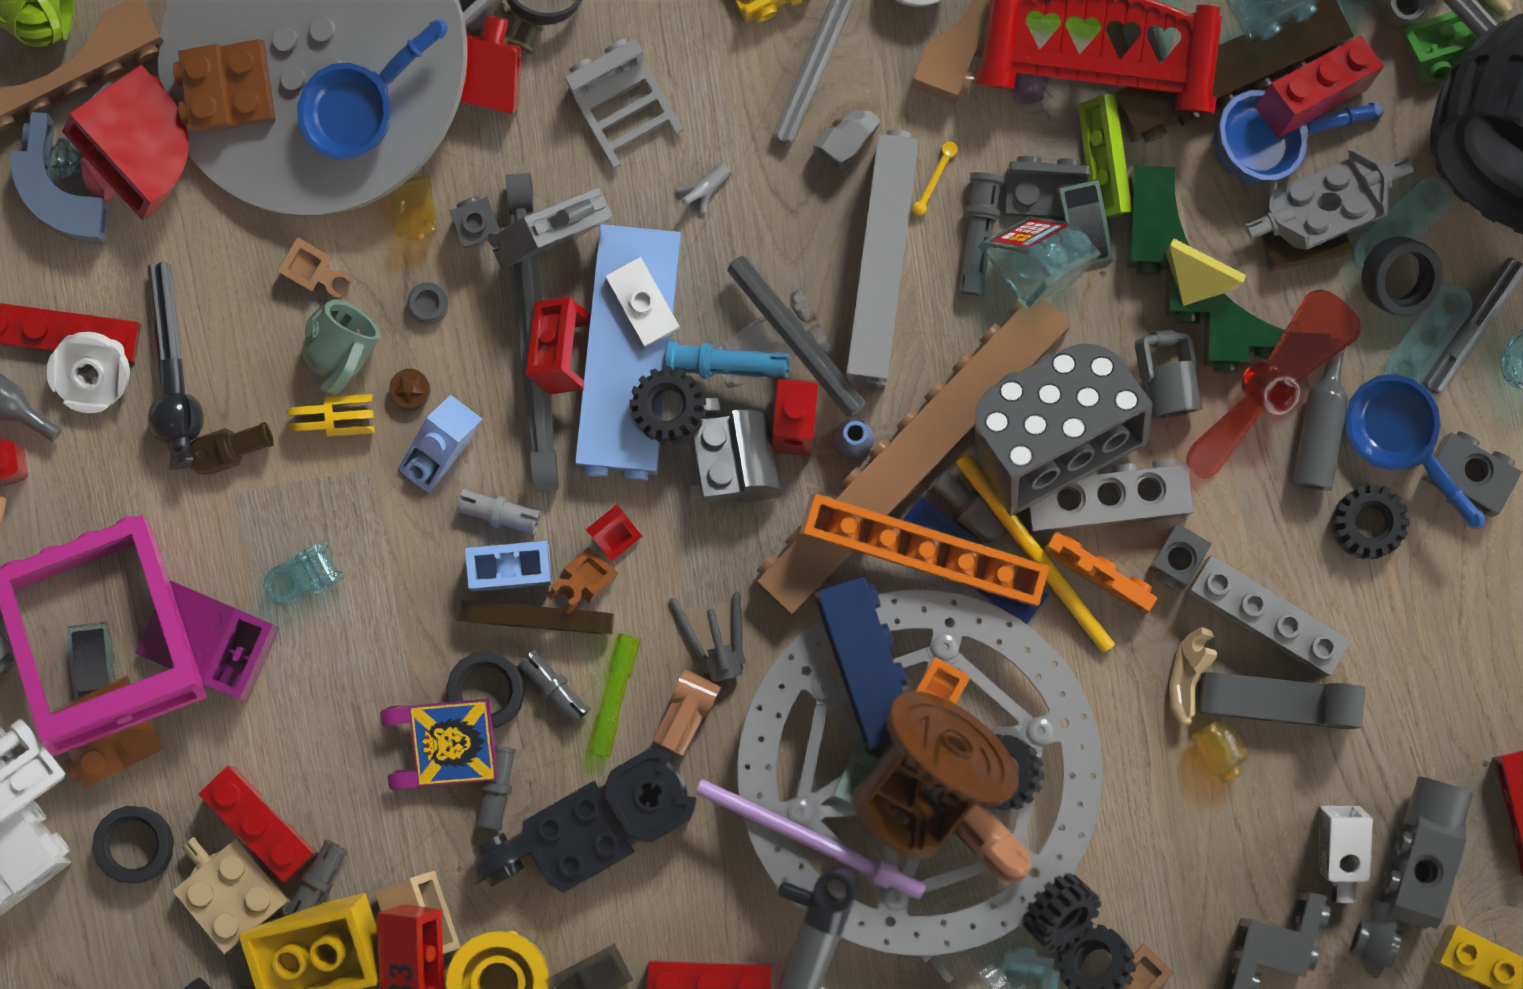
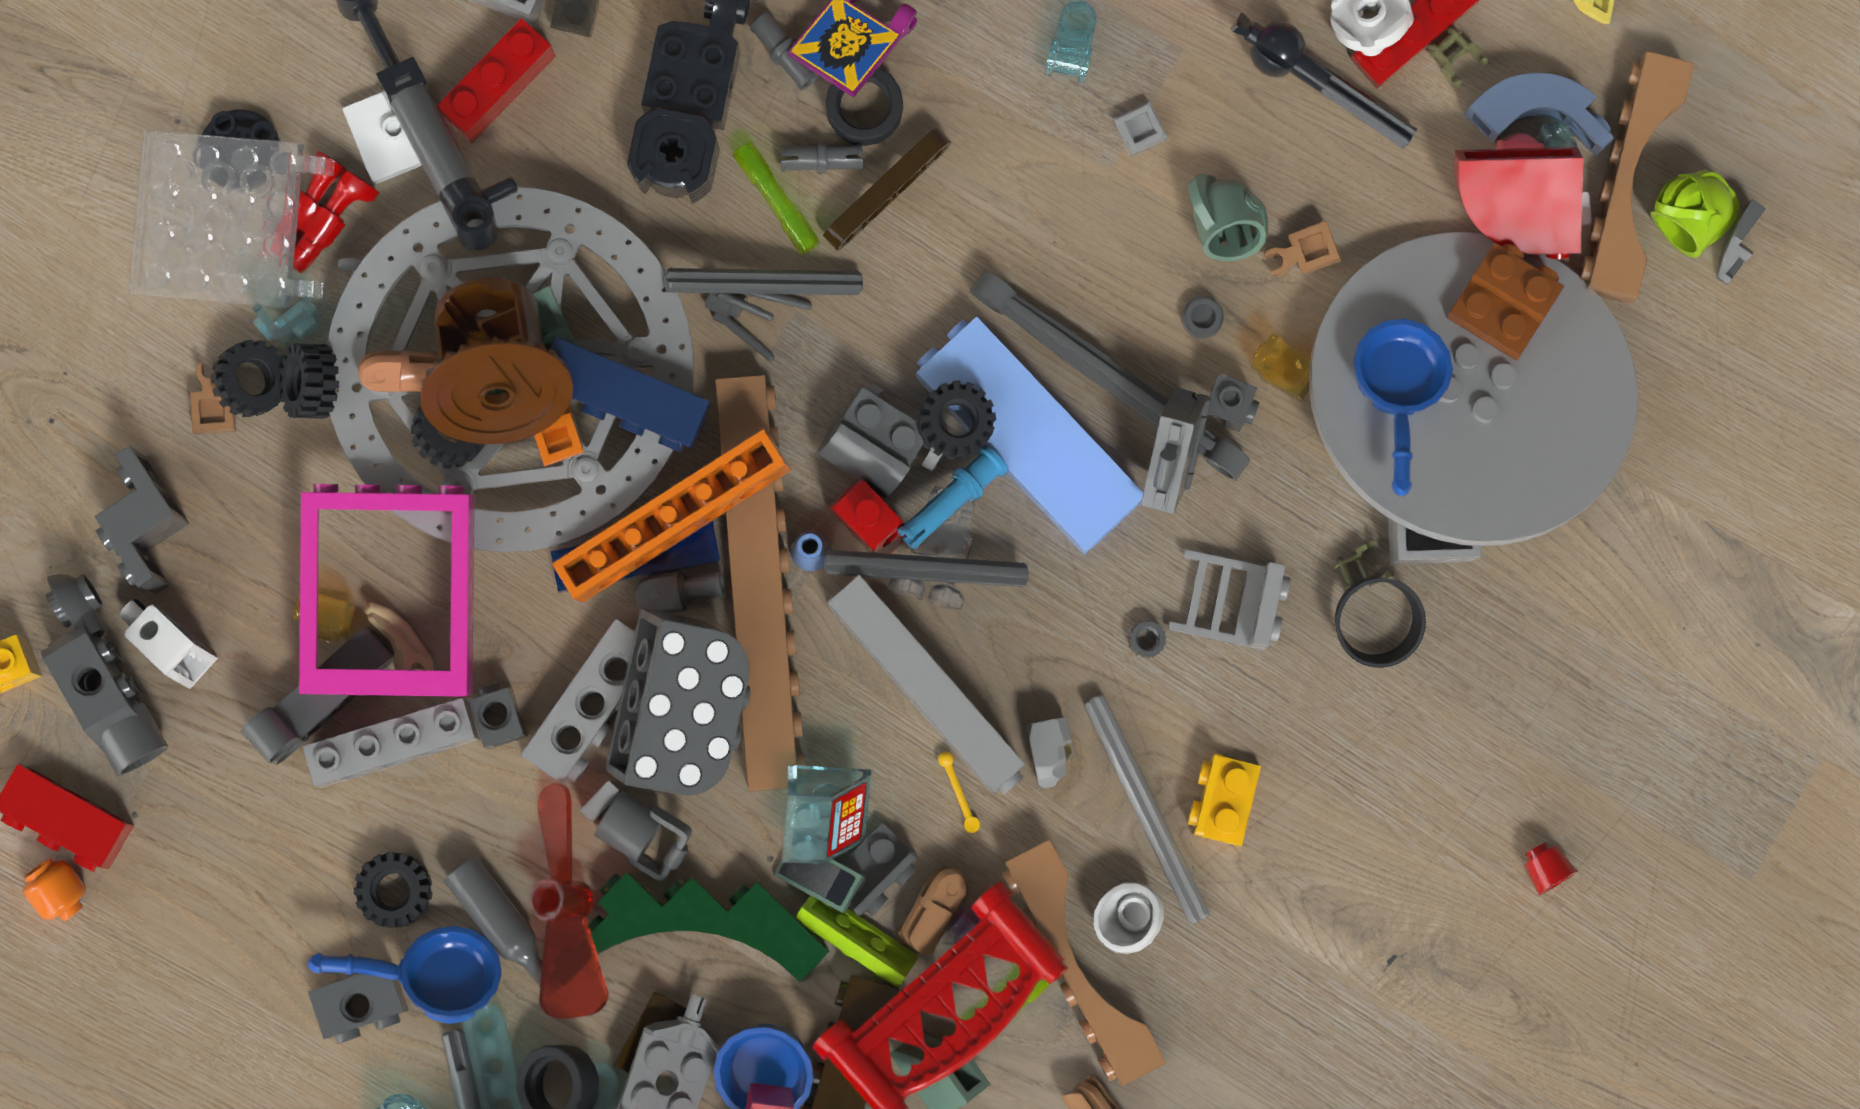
camera: 130 degrees right, 0 degrees up
(72, 302) = (1454, 36): none -> olive piece
(225, 448) = (1221, 69): dark brown arm -> none
(324, 471) = (1140, 129): none -> light grey tile
(331, 416) = (1175, 169): yellow arm -> none
(409, 389) = (1147, 246): reddish brown tile -> none
(439, 443) = (1084, 231): light blue slope -> none
(492, 68) = (1343, 519): red torso -> none
(498, 511) = (992, 231): light grey pin -> none
(508, 566) = (941, 199): light blue brick -> none
(552, 344) = (1084, 377): red panel -> none
(584, 578) = (884, 251): dark orange plate -> none
(614, 532) = (898, 303): red plate -> none
(642, 302) = (1055, 472): white plate -> none
(688, 643) = (762, 281): none -> dark grey axle
(689, 705) = (716, 244): nougat piece -> none
(703, 126) = (1159, 634): none -> dark grey axle
(704, 187) = (1108, 606): light grey bar -> none
(884, 873) = (456, 271): lavender bar -> none
(981, 214) = (897, 802): dark grey pin -> none
(1036, 120) = (933, 910): none -> medium nougat arm
(1036, 554) = (599, 608): yellow piece -> none
(1087, 755) = (390, 682): none -> dark pink window
(1100, 572) = (504, 655): orange wing -> none
(1172, 427) = (600, 801): none -> light grey tile
(1200, 275) = (694, 920): light yellow slope -> none

